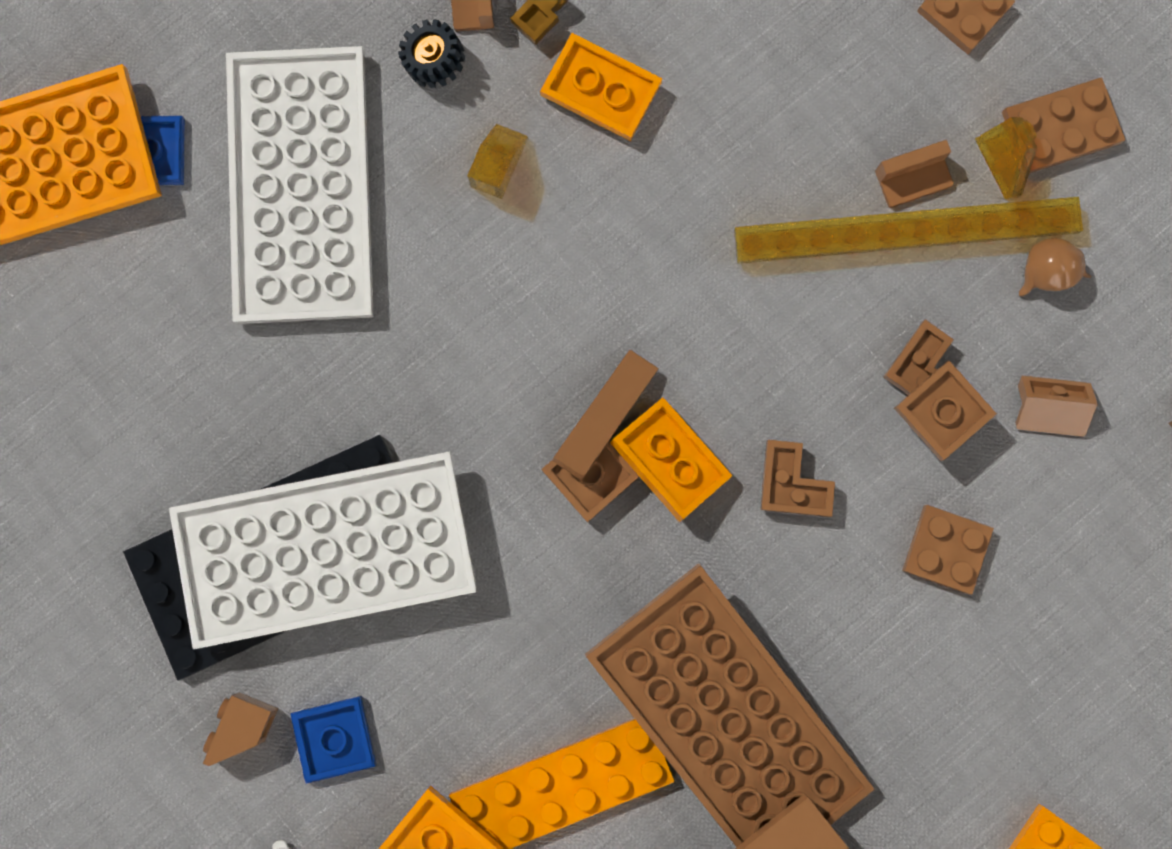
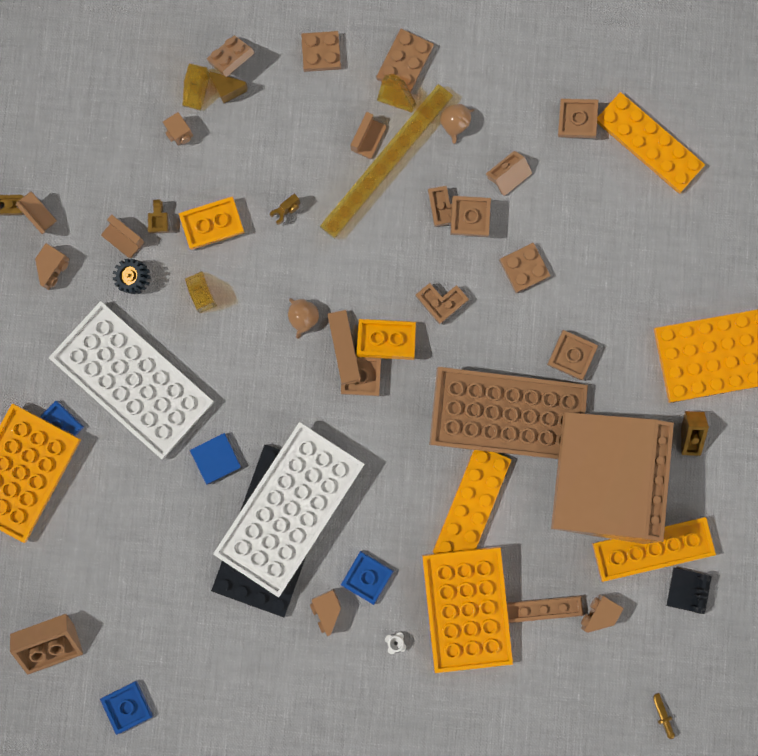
camera: 50 degrees left, 0 degrees up
(301, 390) = (215, 458): none -> blue tile
(595, 320) = (302, 315): none -> medium nougat hair
(720, 161) = (289, 205): none -> pearl gold plate
(894, 728) = (572, 355): none -> medium nougat plate

